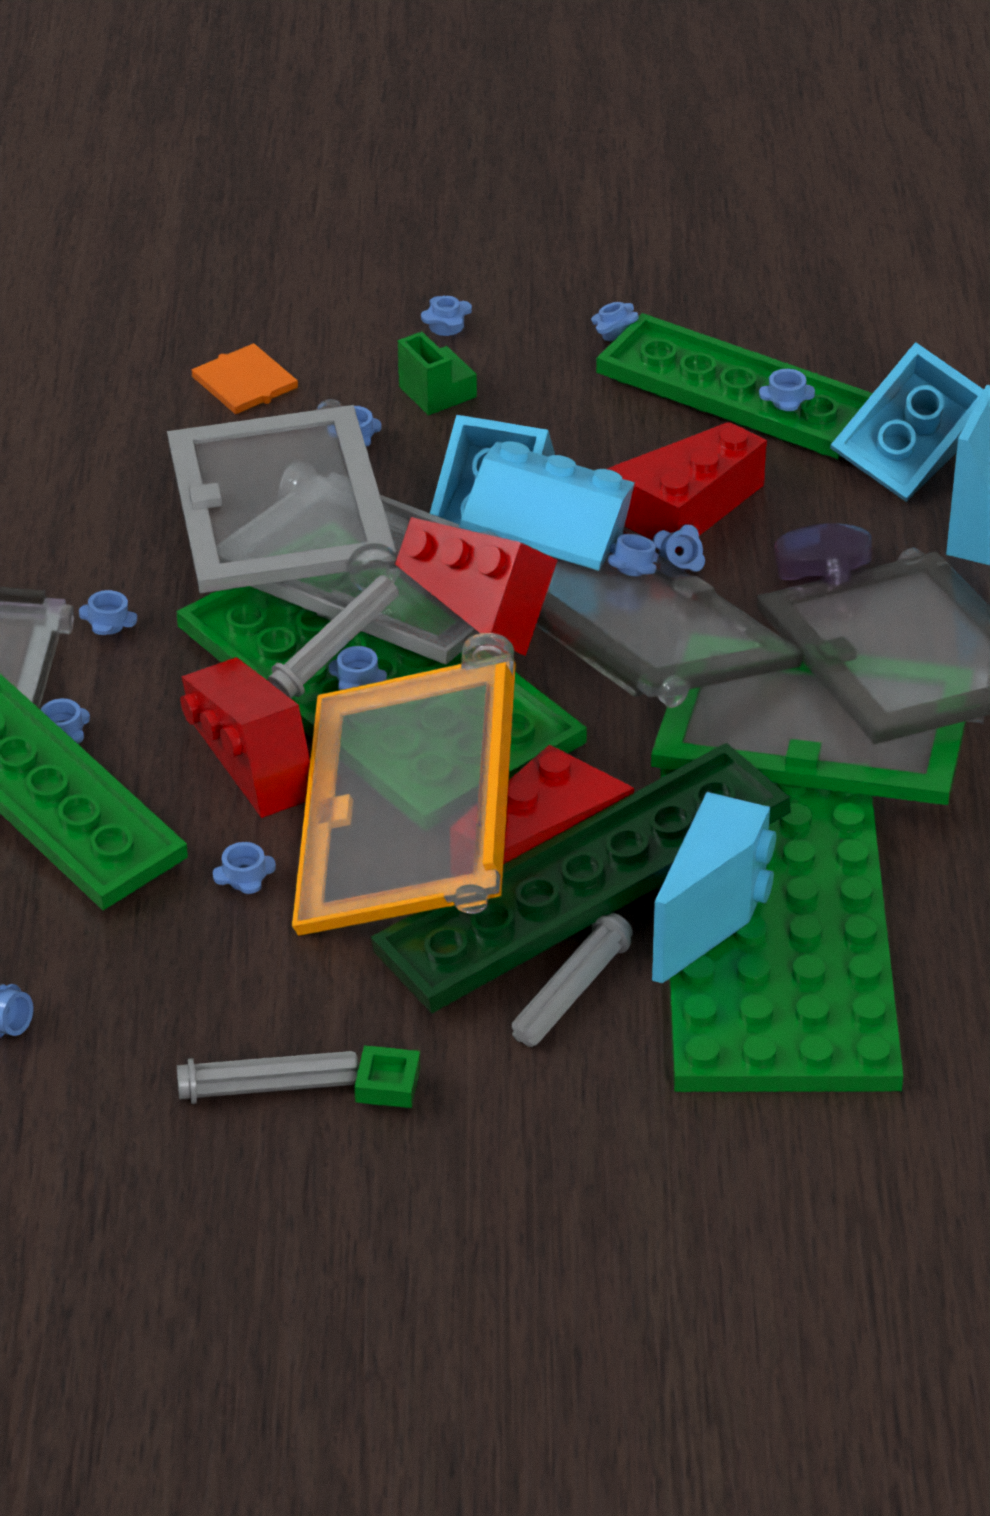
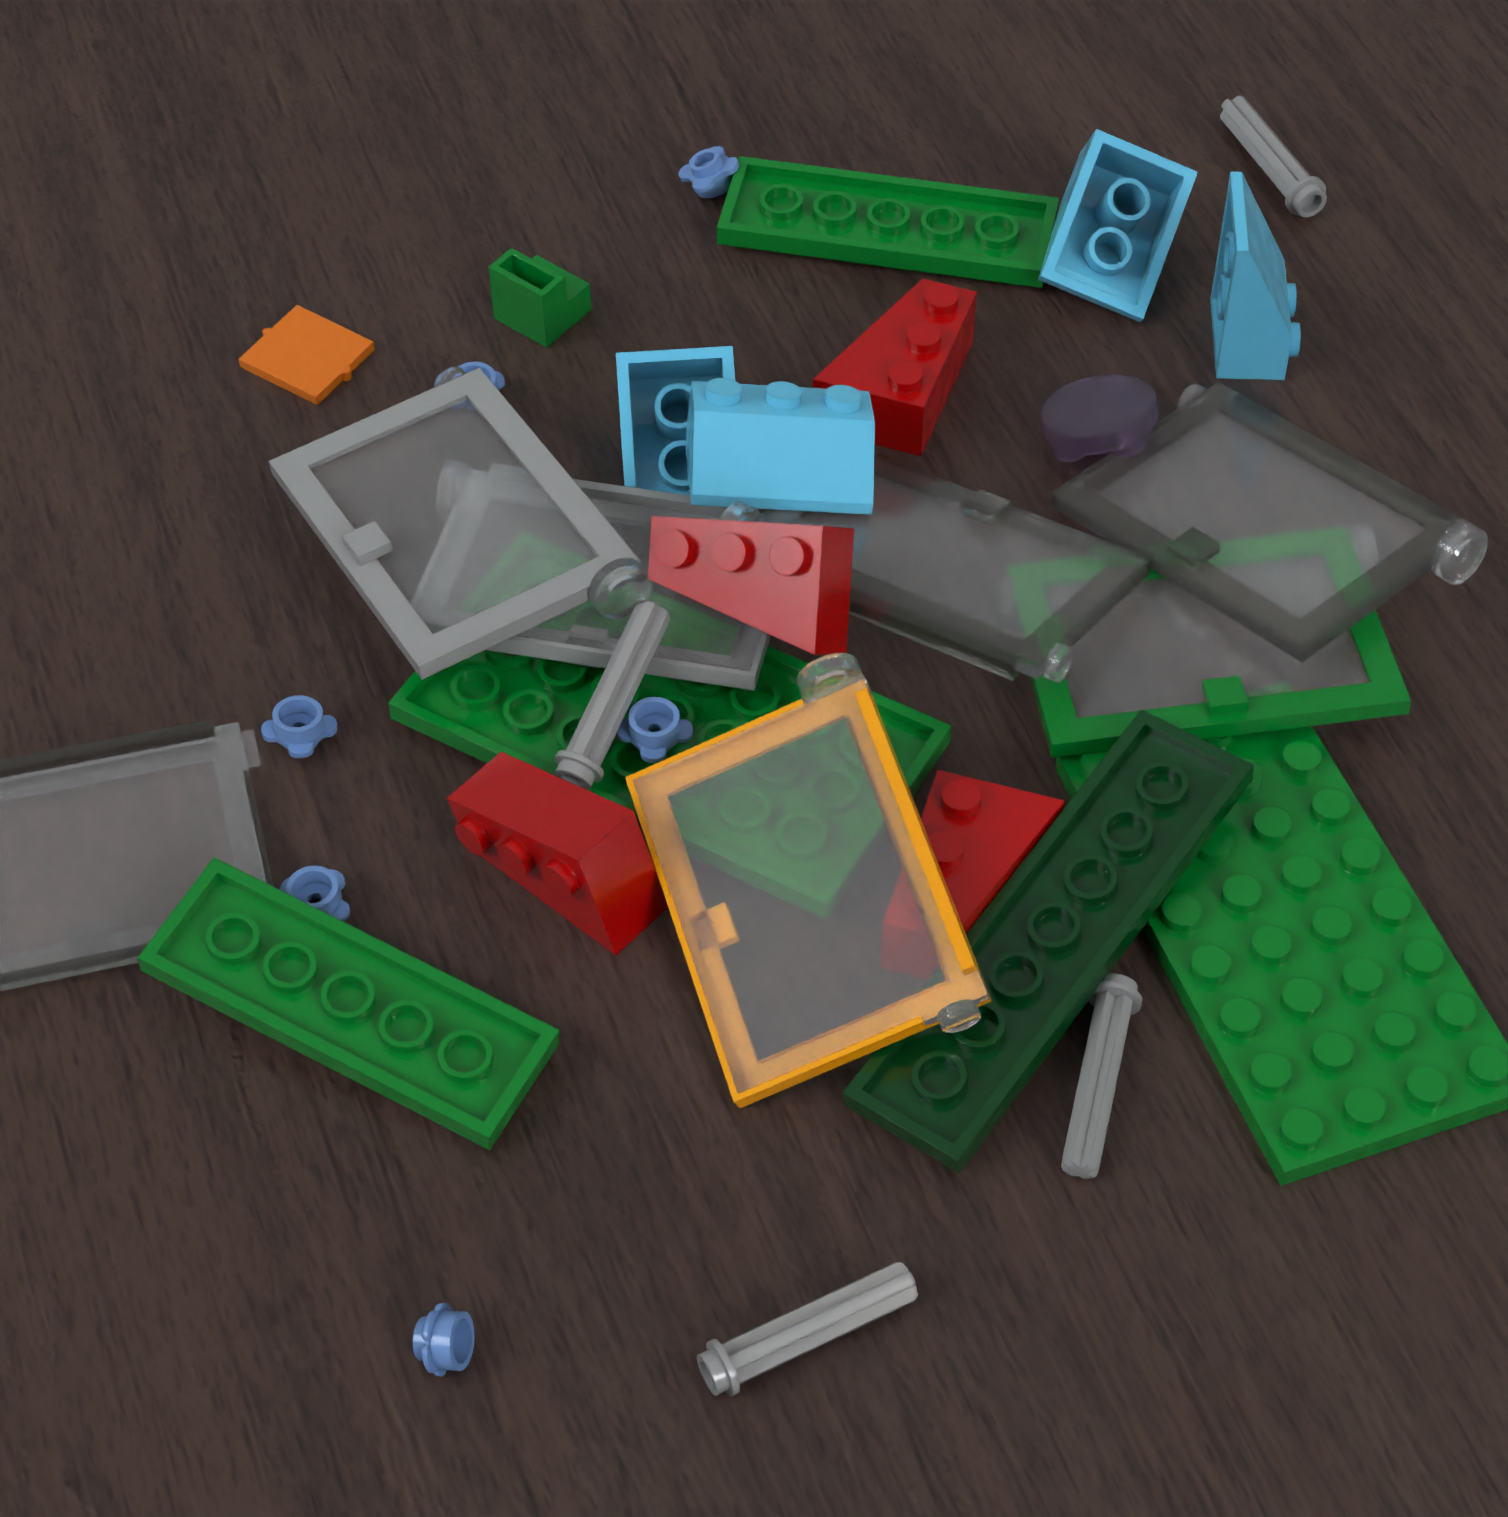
camera: 20 degrees left, 10 degrees up
(244, 867) = (637, 1022): medium blue plate -> none
(387, 1076) = (955, 1283): green plate -> none
(446, 315) = (508, 211): medium blue plate -> none
(633, 555) = (903, 483): medium blue plate -> none
(688, 540) = (944, 447): medium blue plate -> none
(712, 882) = (1229, 898): medium azure slope -> none
(787, 389) = (959, 218): medium blue plate -> none

